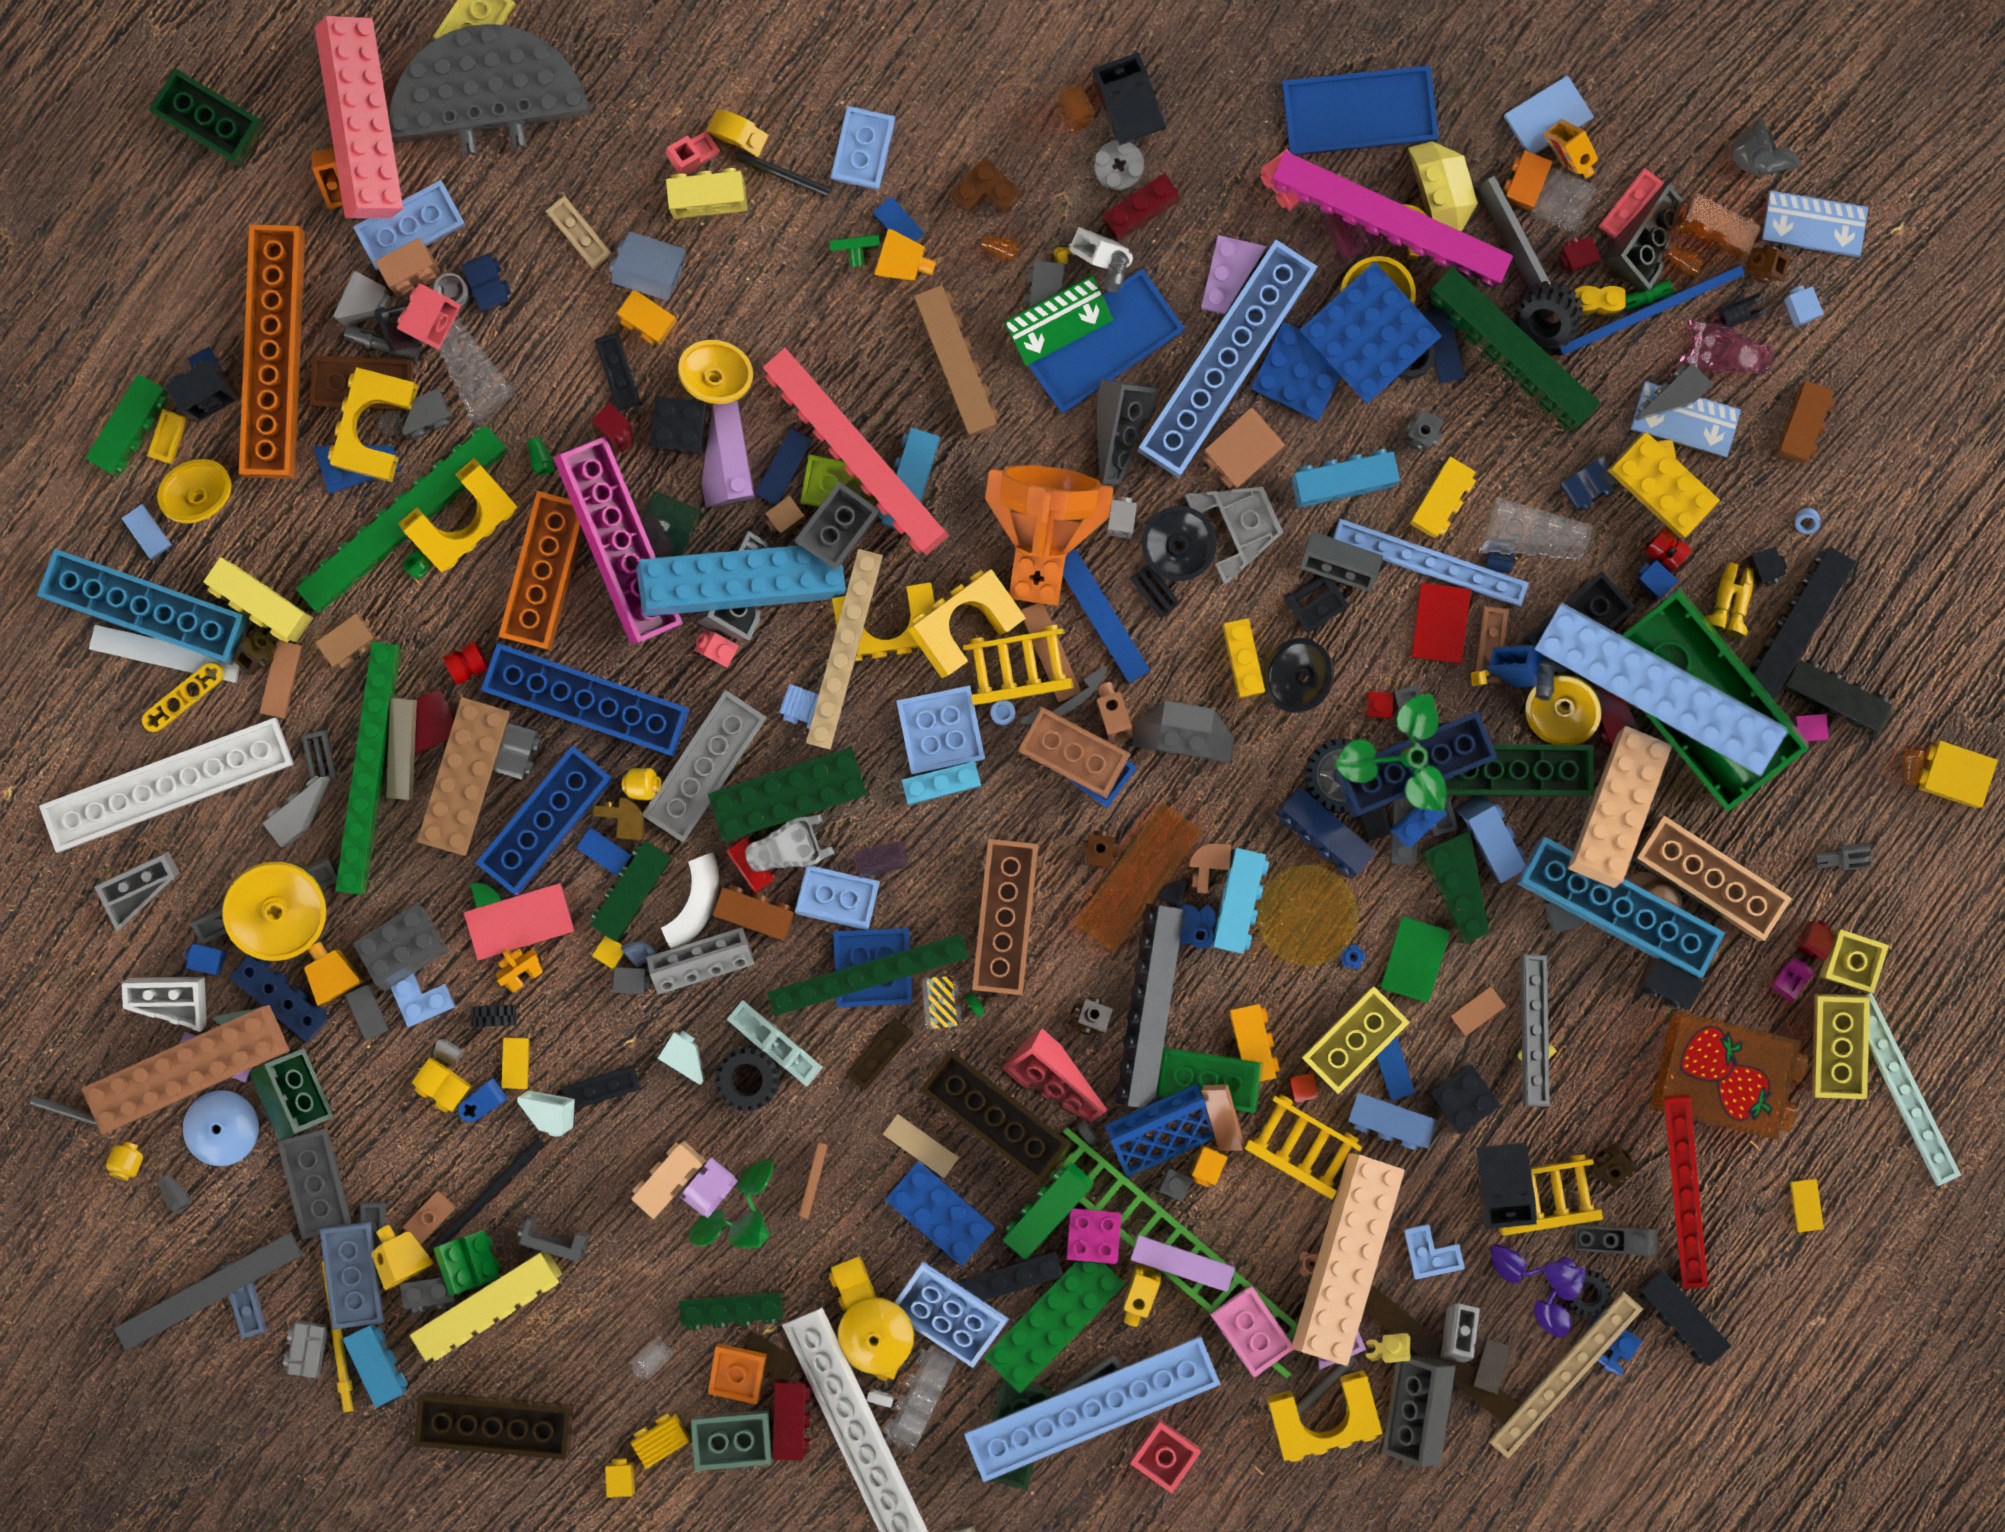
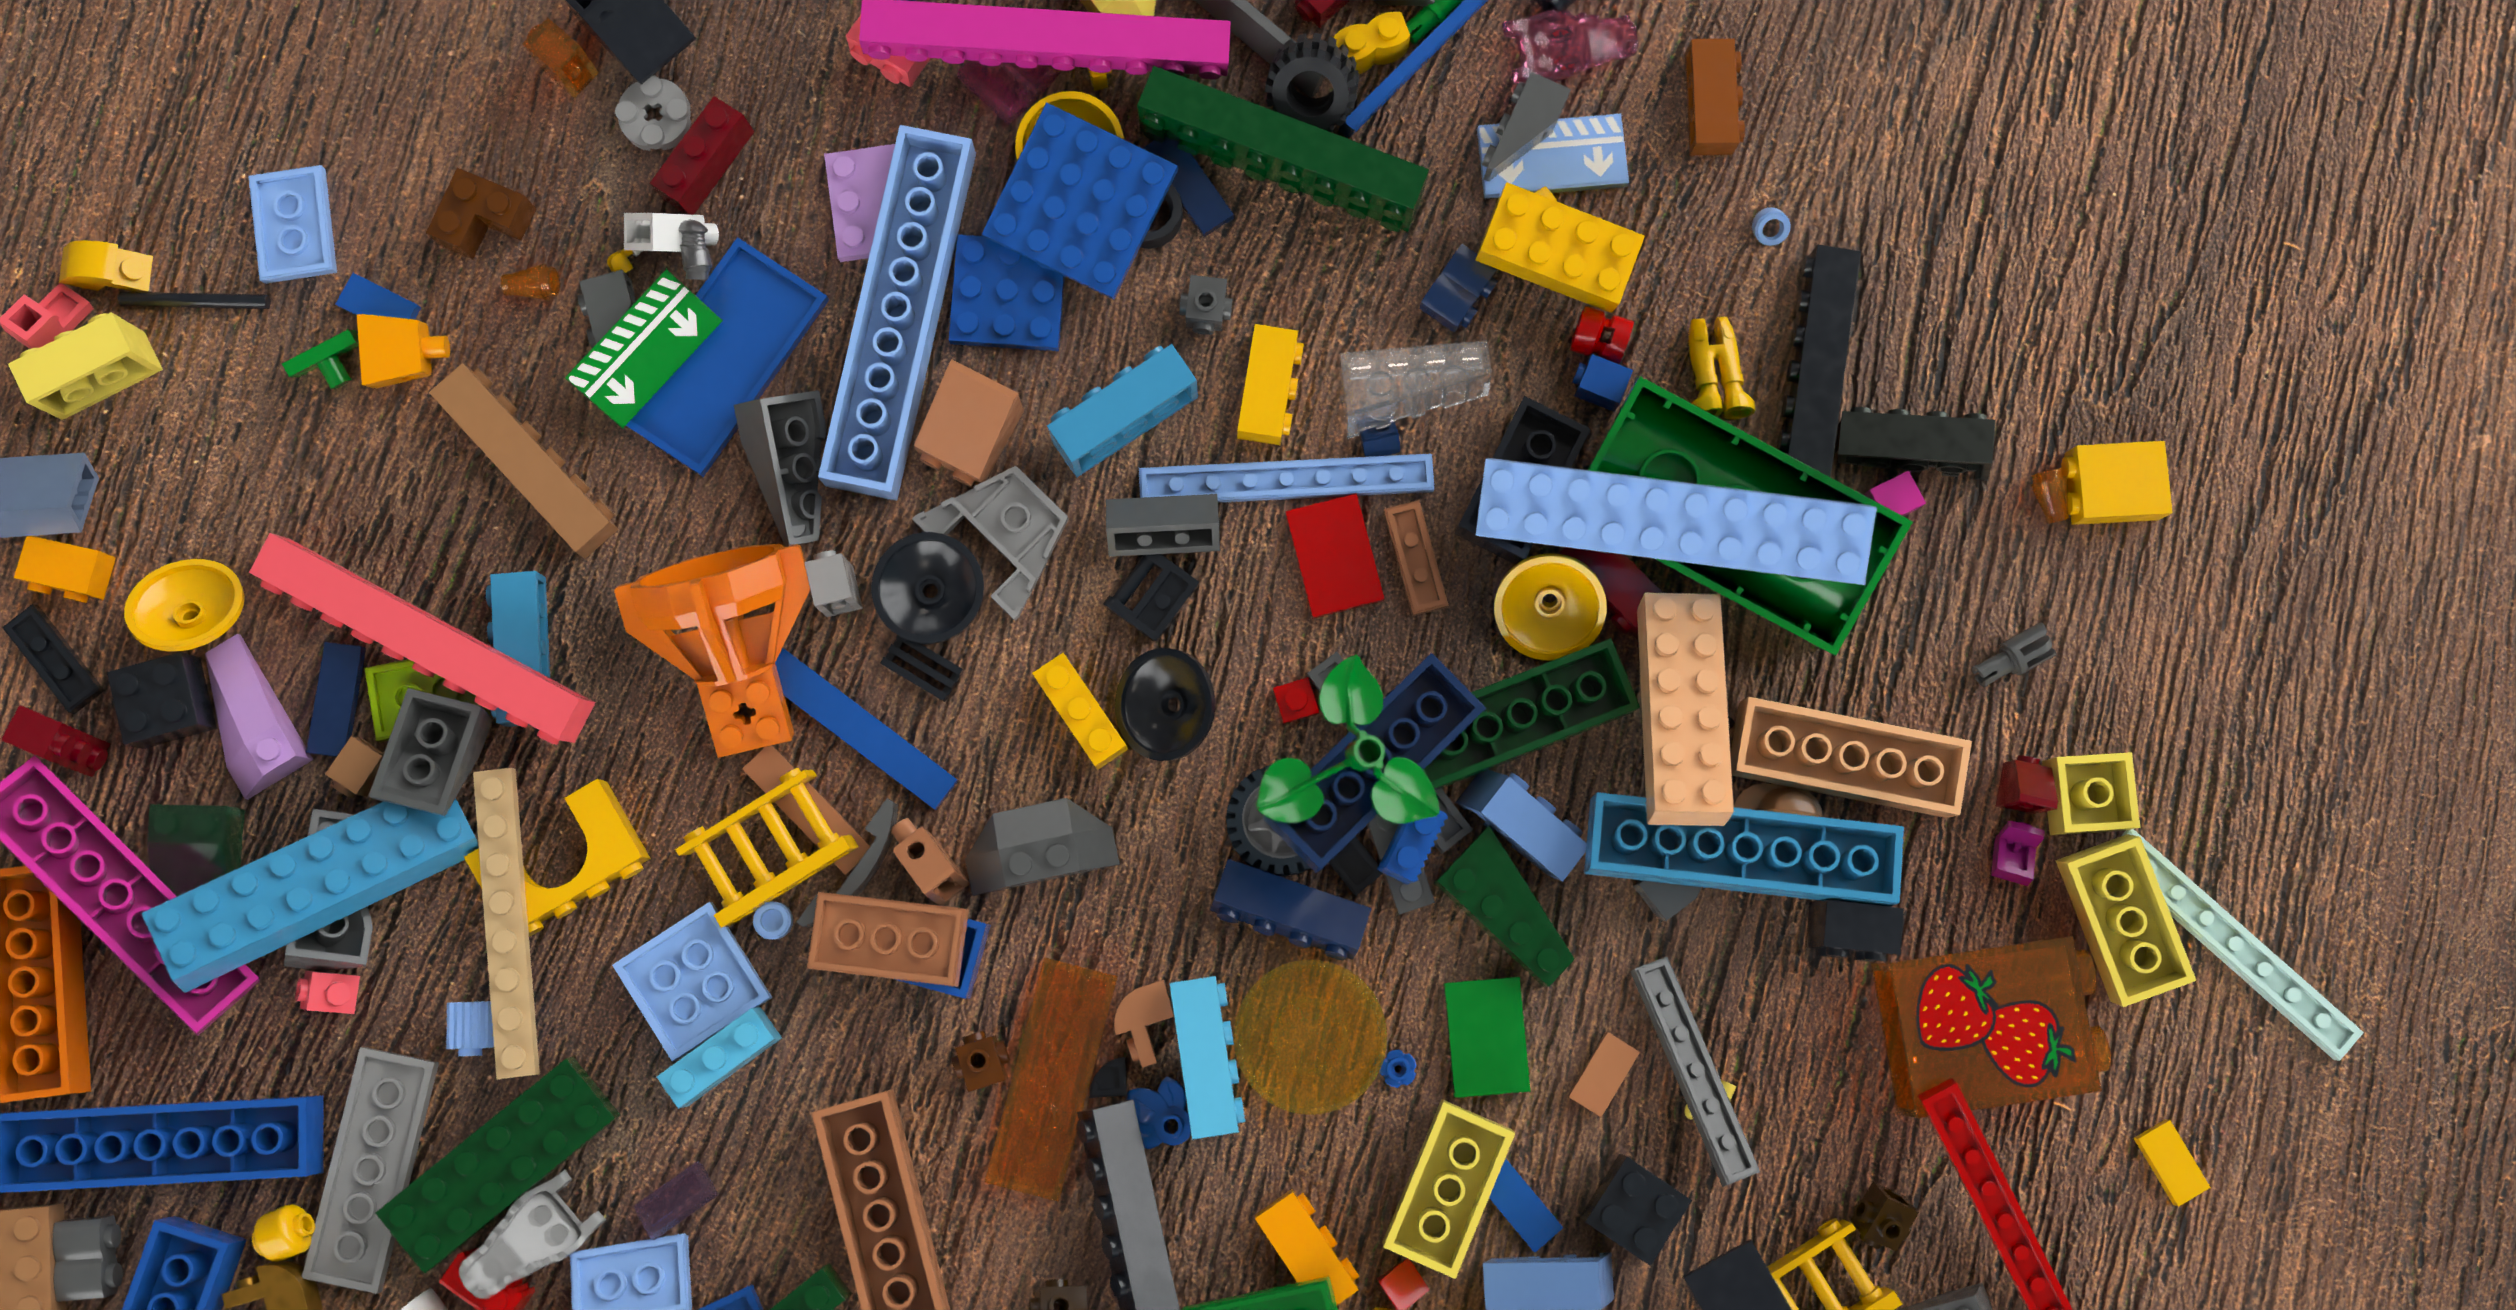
camera: 25 degrees left, 5 degrees down
(933, 631) = (678, 764): yellow arch -> none
(1519, 668) = (1465, 573): blue torso -> none
(1768, 566) = (1744, 305): black brick -> none

